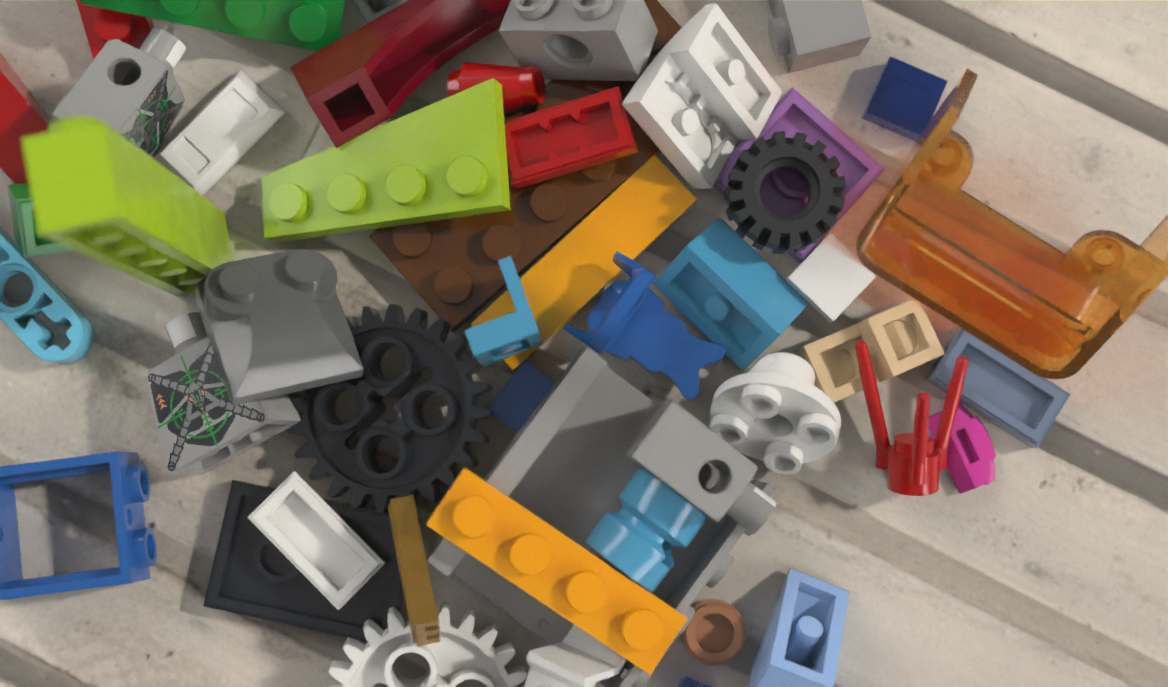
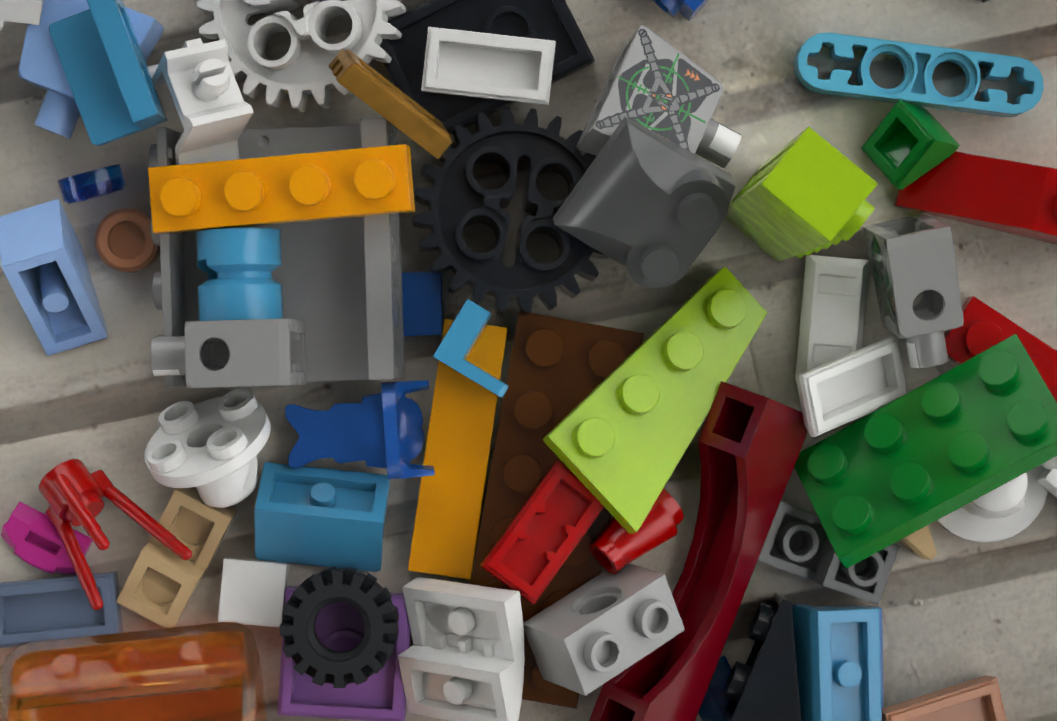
camera: 145 degrees right, 5 degrees up
(242, 66) = (851, 386): none -> white tile

